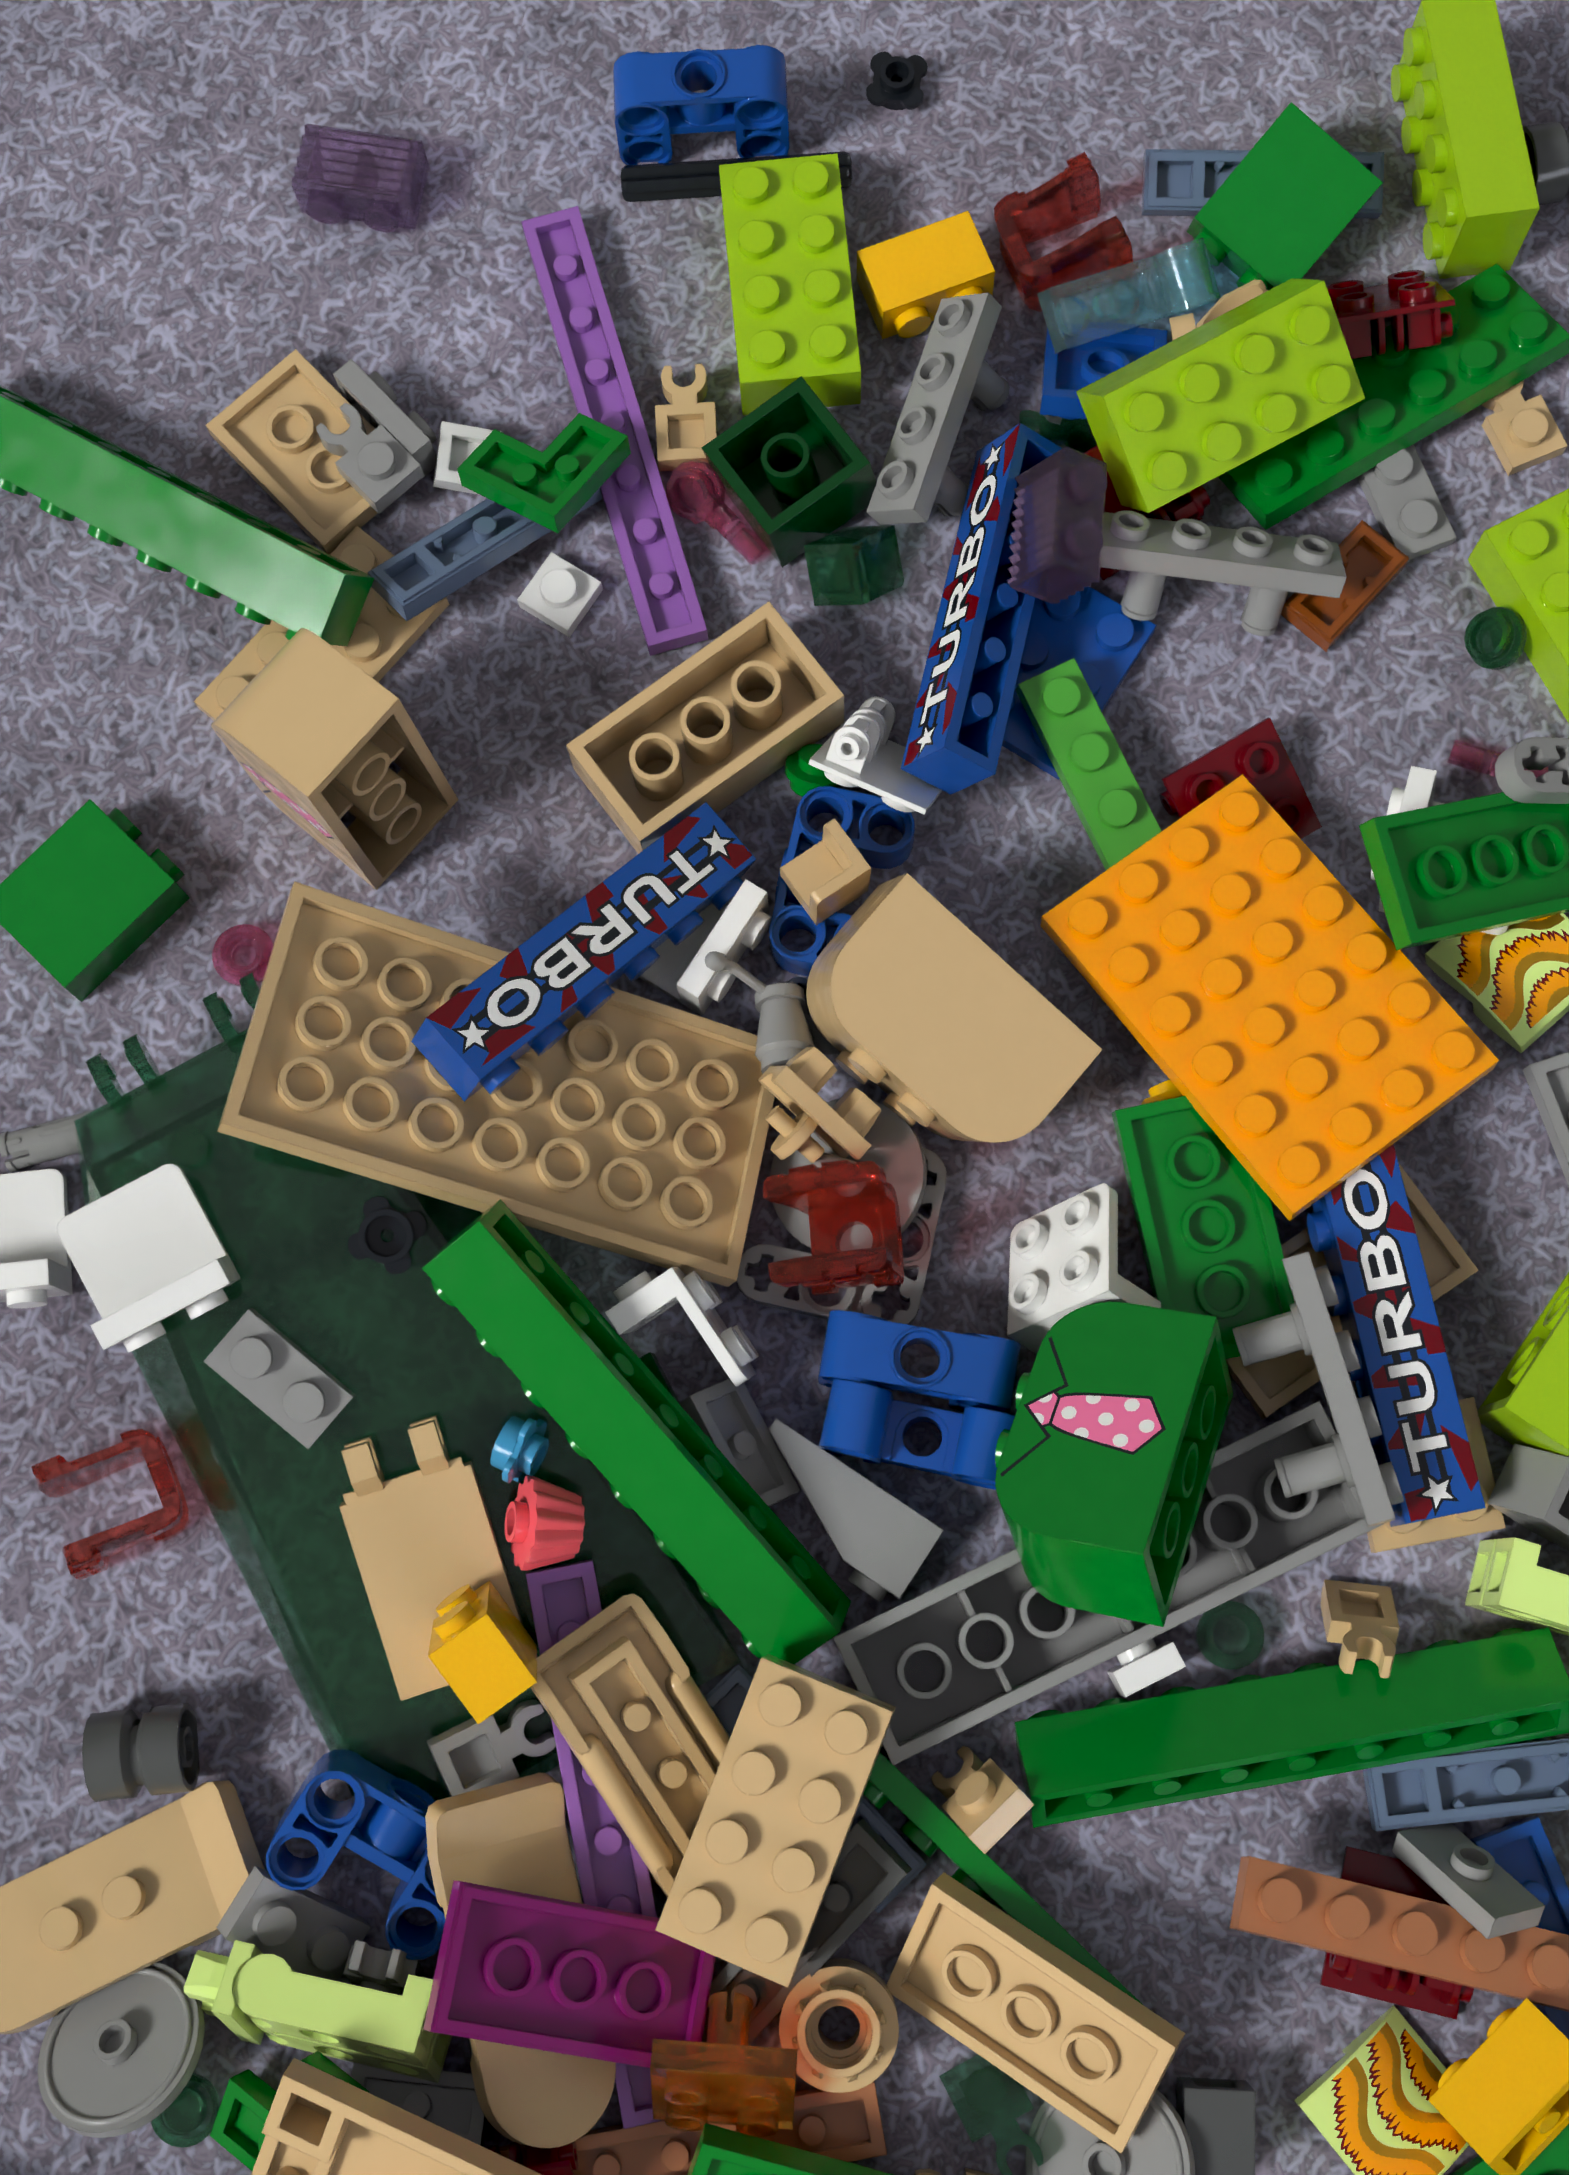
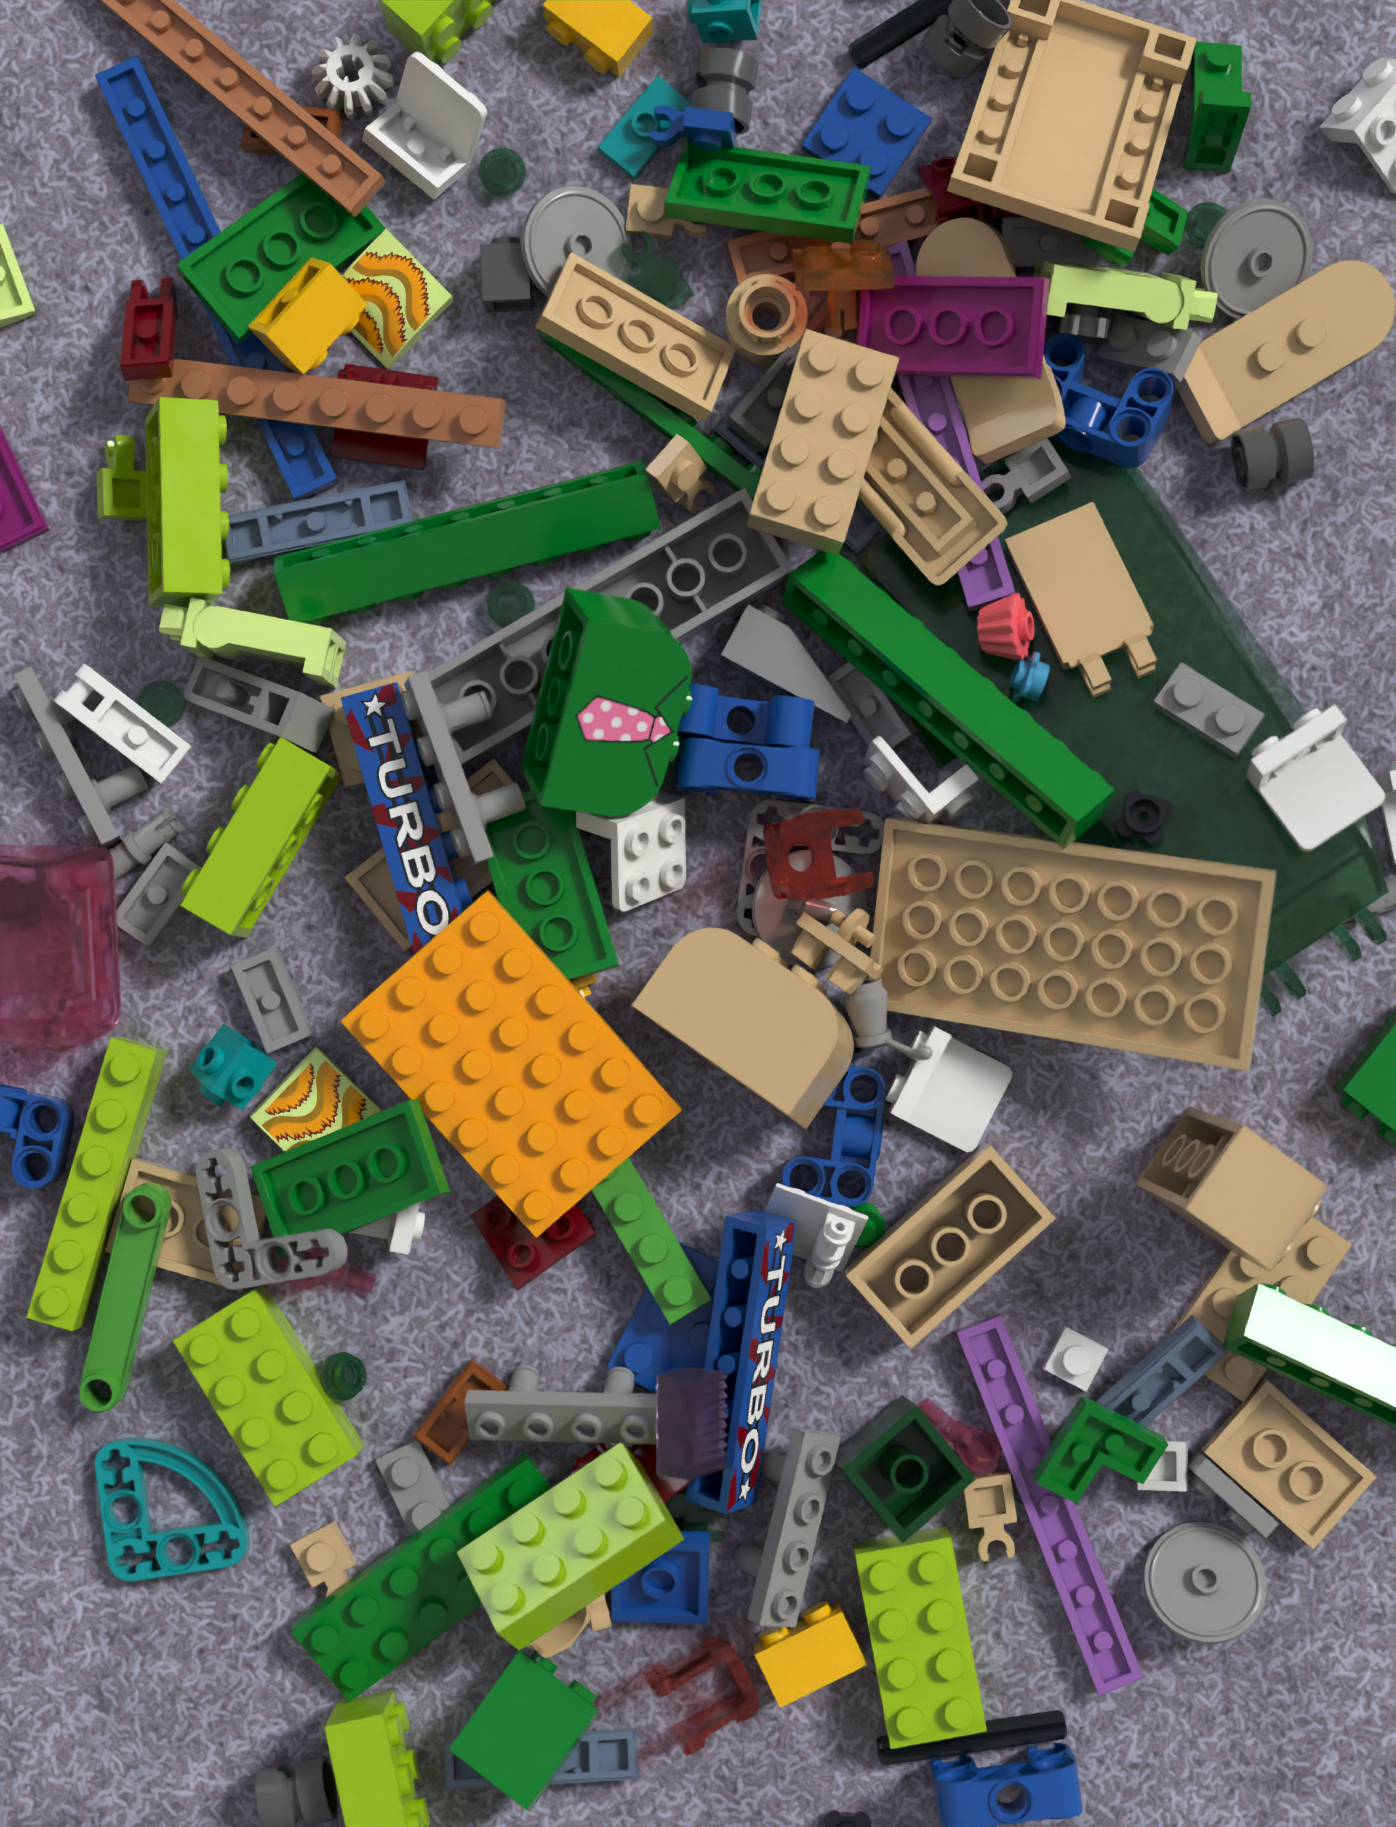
camera: 170 degrees right, 10 degrees up
(92, 1554) = (1284, 643): clear red piece -> none
(235, 939) = (1298, 1047): clear pink plate -> none
(360, 177) = (1281, 1709): clear purple brick -> none
(372, 462) = (1236, 1452): light grey plate -> none
(433, 319) = (1204, 1583): none -> light grey shield
(482, 1650) = (1039, 532): yellow brick -> none
(582, 953) = (1022, 1048): brick -> none
(827, 874) = (847, 1130): tan panel -> none
(854, 565) = (846, 1398): clear green panel -> none
(1129, 296) = (644, 1641): clear light blue plate -> none
(1144, 1666) = (570, 574): white plate -> none
(1362, 1621) = (421, 618): tan plate -> none
(1405, 294) = (444, 1651): dark red hinge -> none
(1468, 1879) = (343, 450): light grey plate -> none

